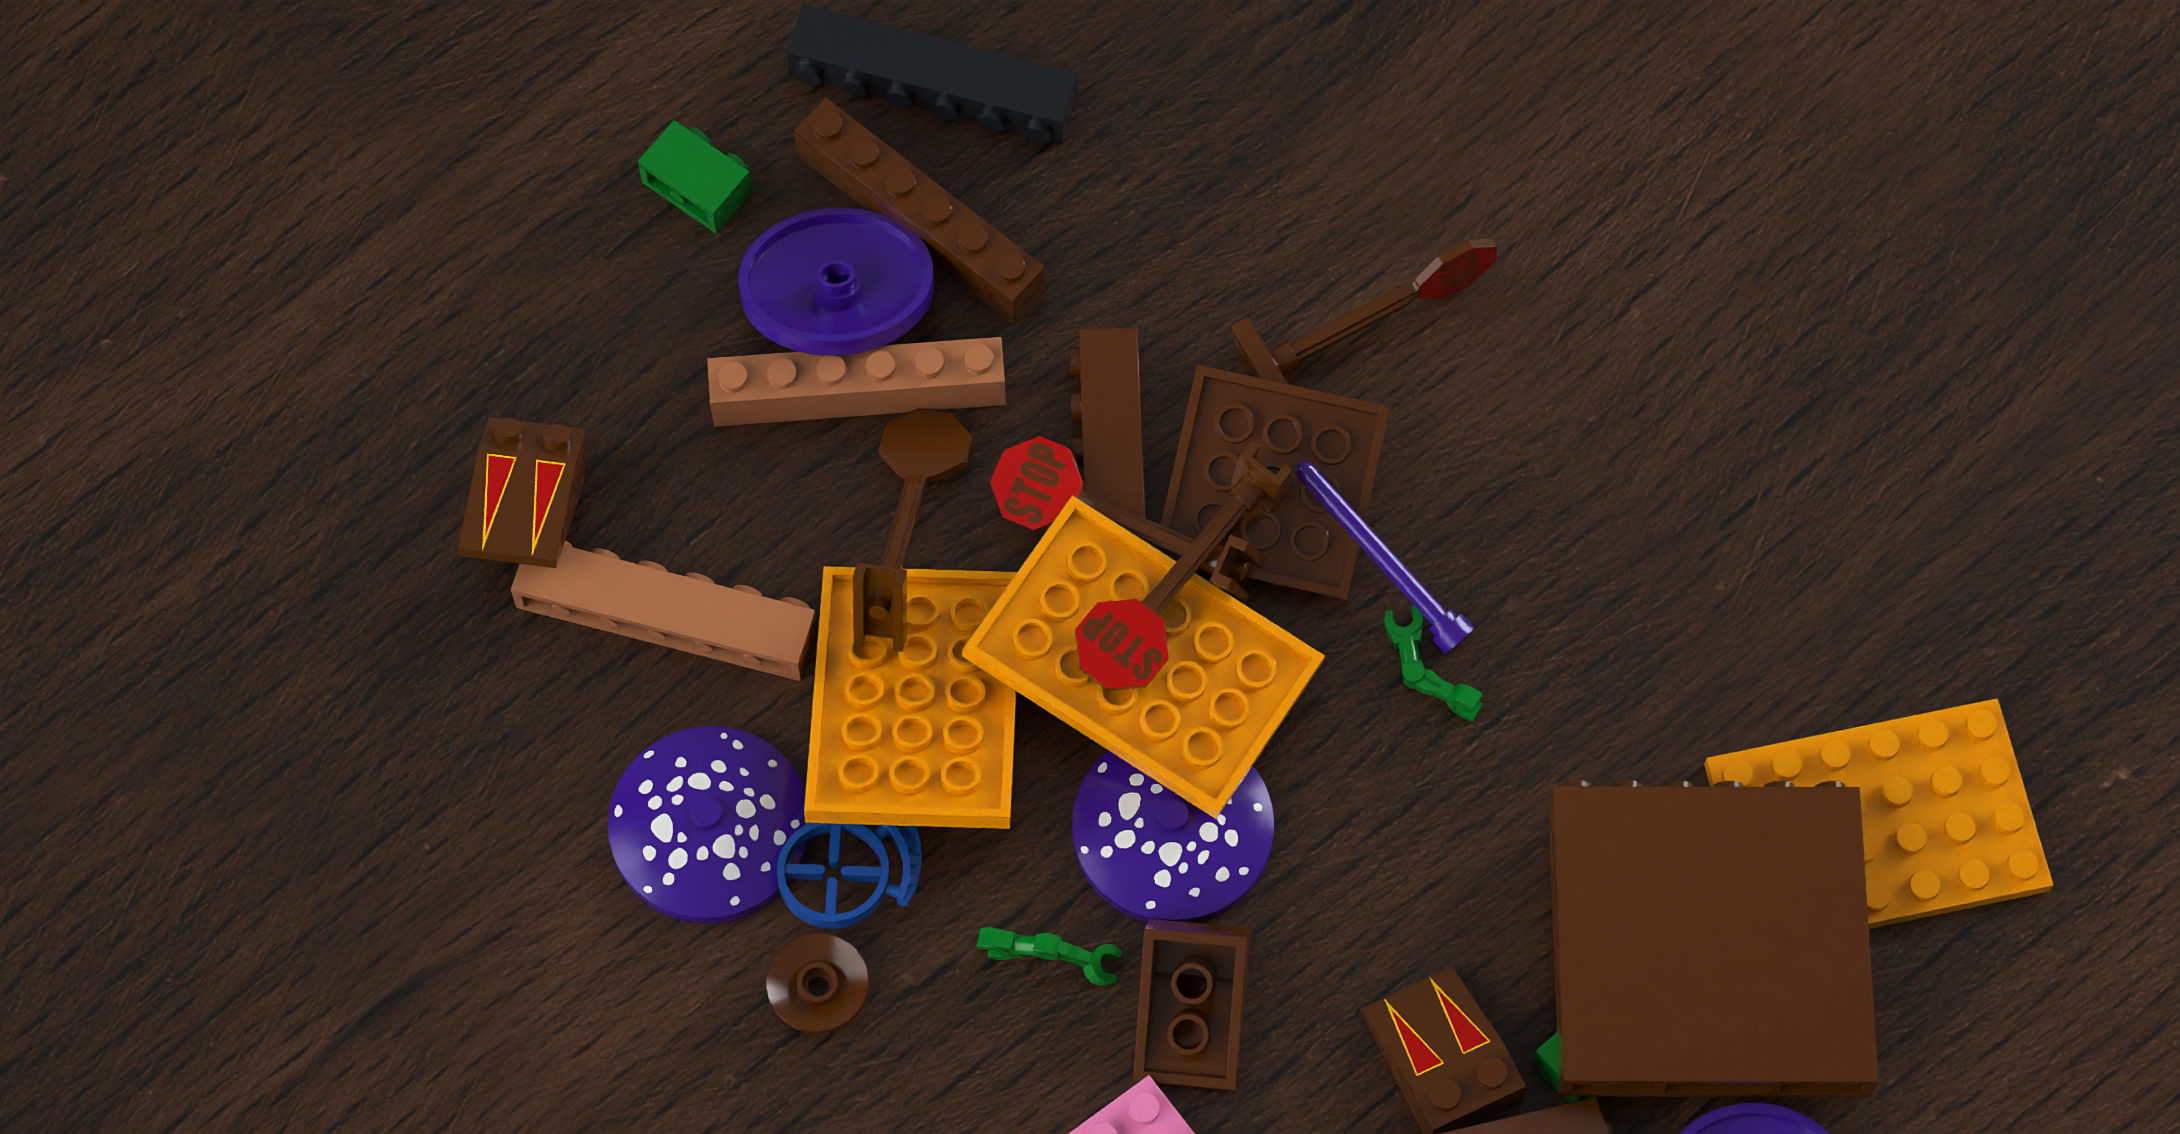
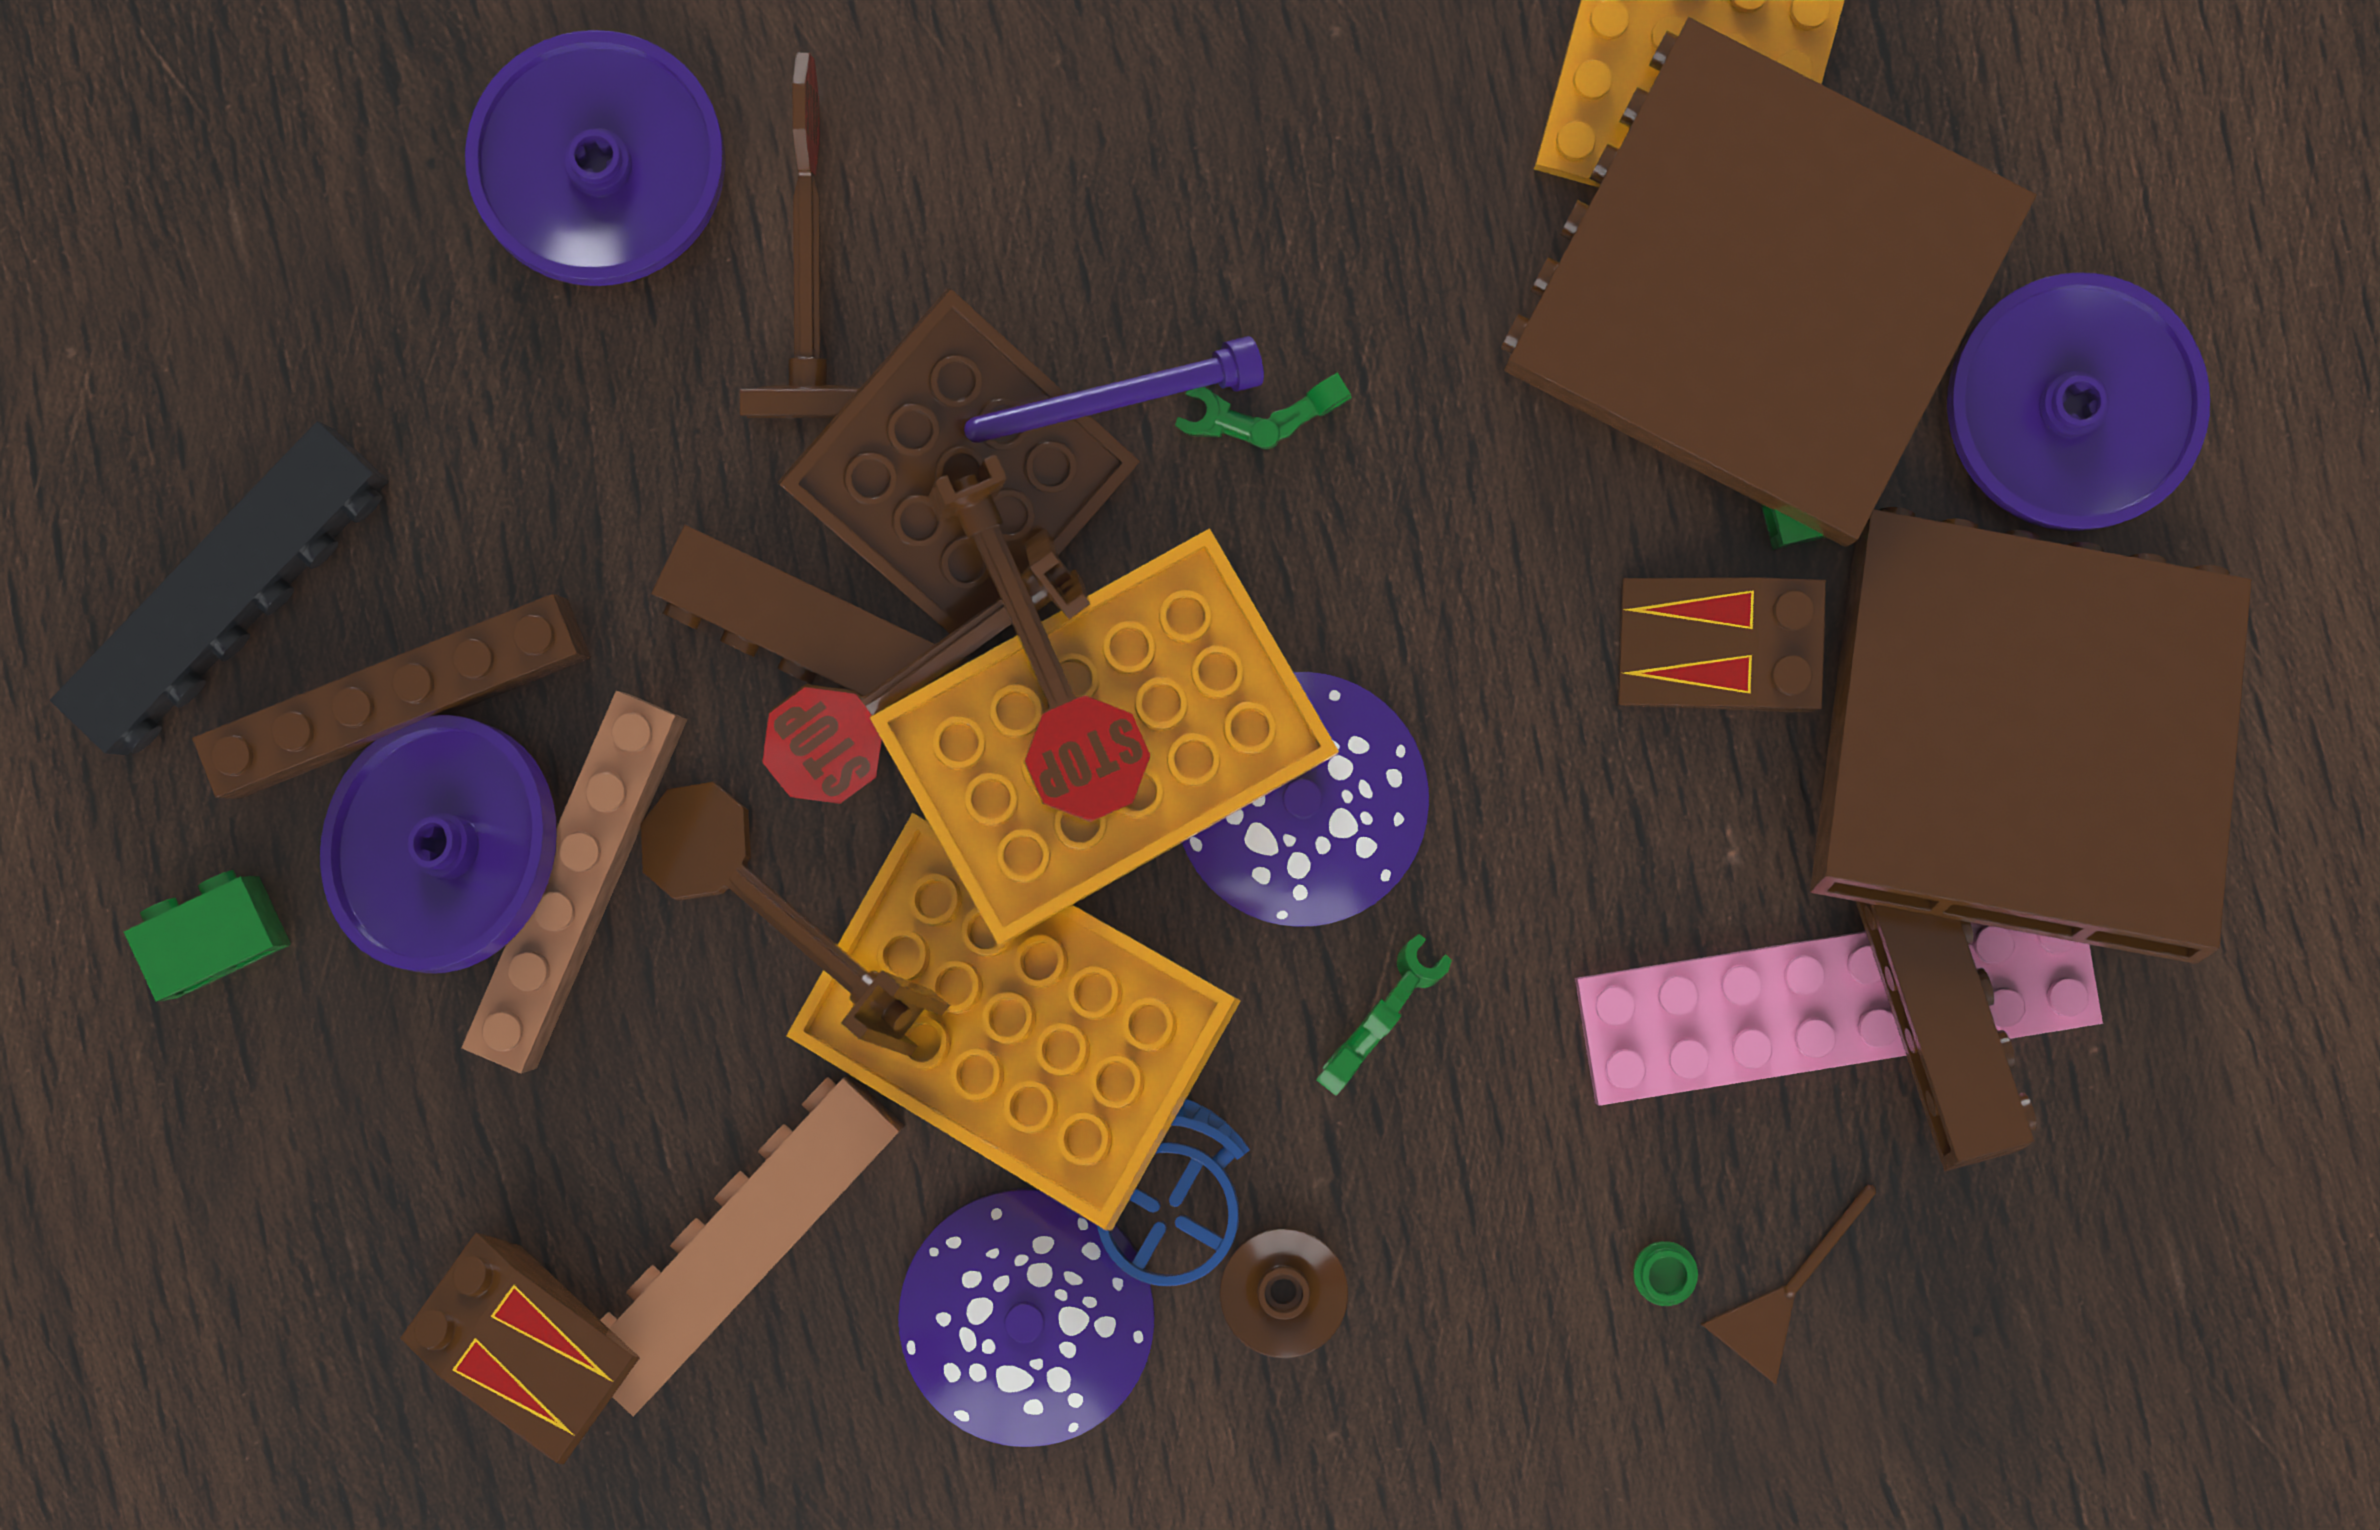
camera: 60 degrees left, 20 degrees up
(1191, 1003) = (1520, 888): reddish brown slope -> none
(1350, 157) = (595, 158): none -> dark purple dish

